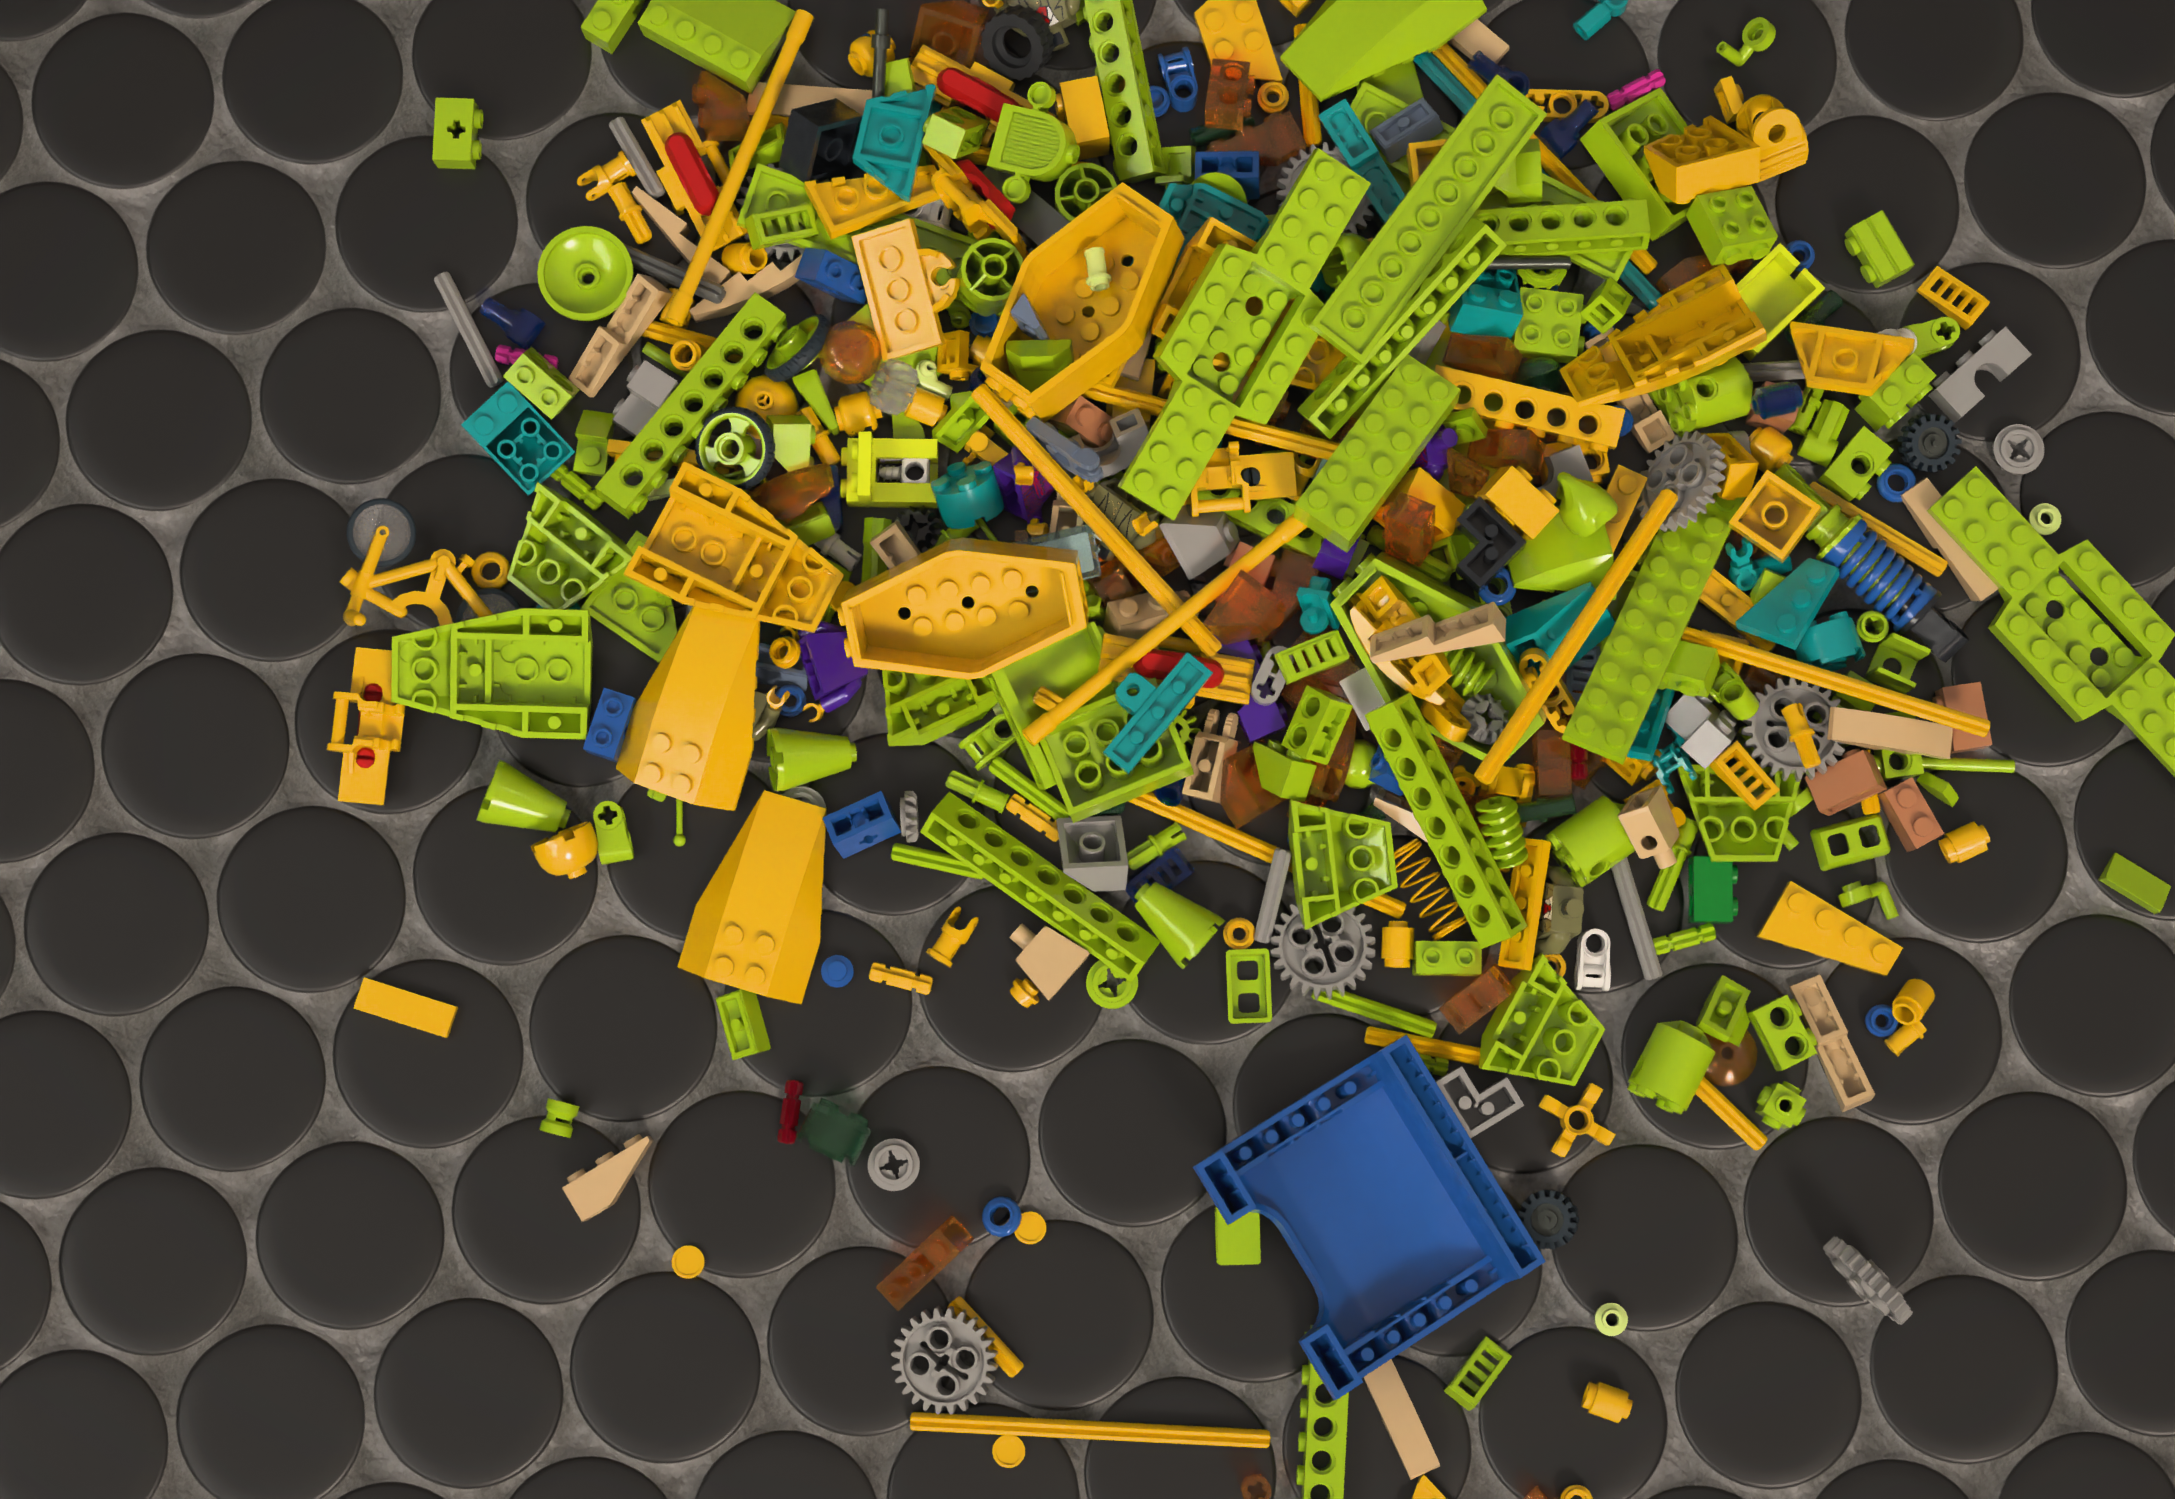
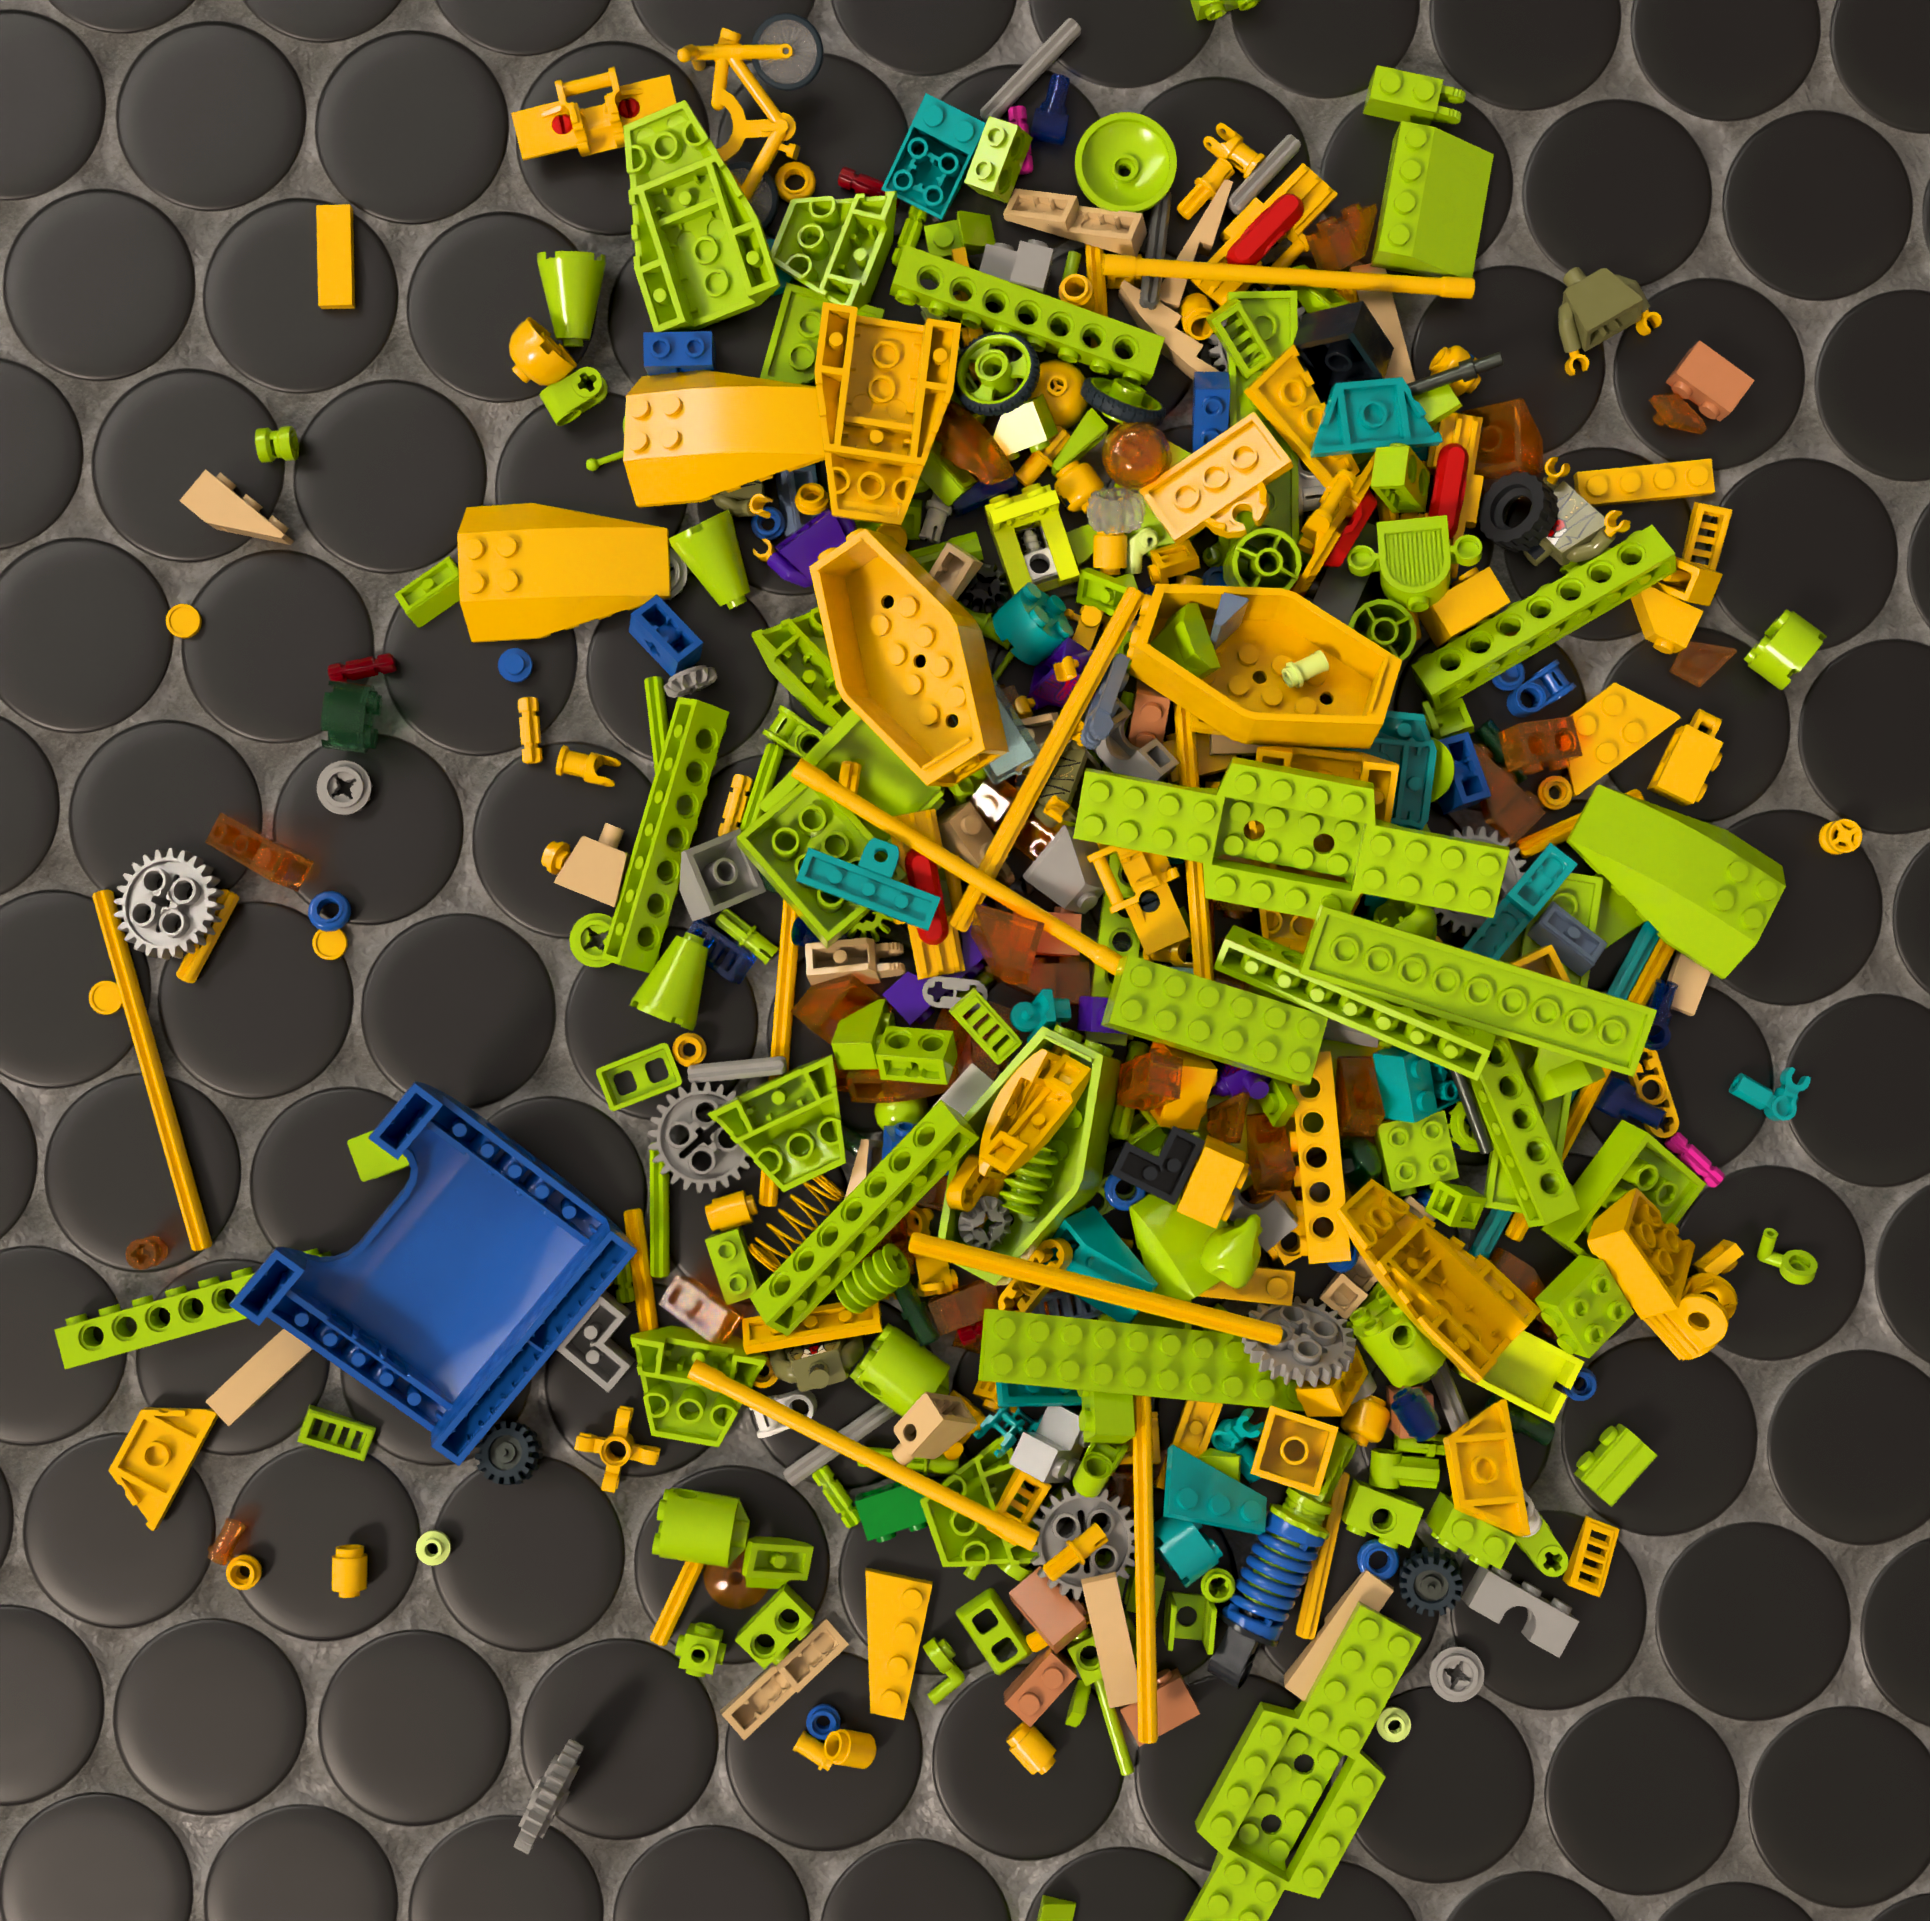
camera: 70 degrees right, 5 degrees up
(515, 511) = (861, 183): none -> dark red axle
(977, 791) = (741, 740): lime axle -> none
(1424, 636) = (1039, 1136): tan slope -> none
(1547, 1003) = (1007, 1527): none -> yellow piece

